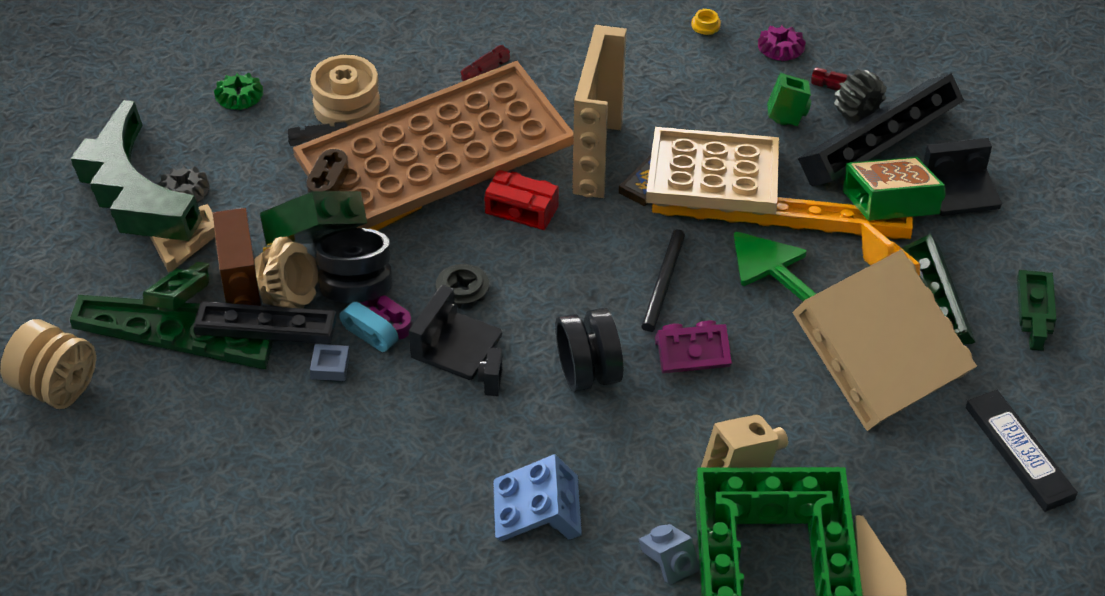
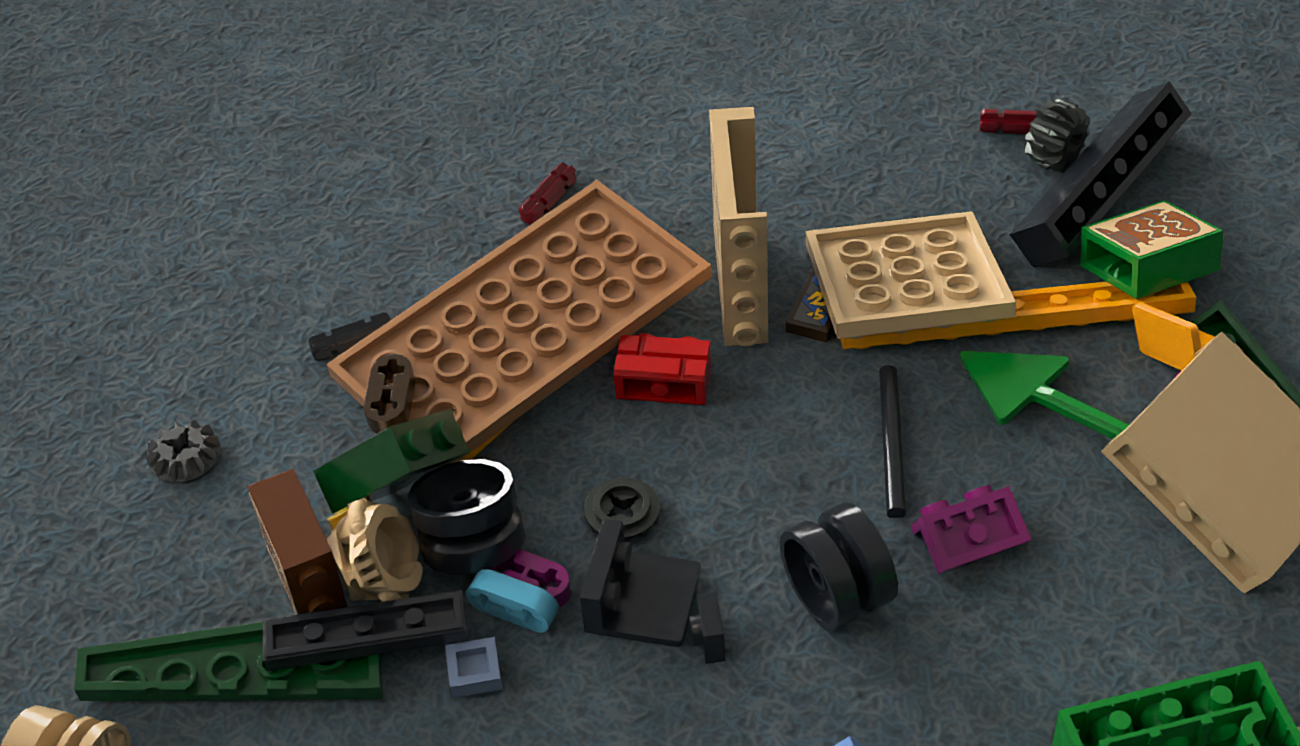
camera: 10 degrees left, 0 degrees up
(134, 201) = (125, 491): arch -> none
(177, 251) = (203, 524): tan wing -> none
(177, 287) = (221, 607): dark green hinge -> none
(250, 92) = (210, 312): green gear -> none
(345, 90) = (372, 269): tan wheel -> none
(706, 22) = (817, 78): yellow plate -> none
(743, 443) = (1105, 647): tan torso -> none
(786, 49) = (933, 95): magenta gear -> none
(789, 100) = (968, 159): green brick -> none
(965, 175) = (1226, 201): black bracket -> none

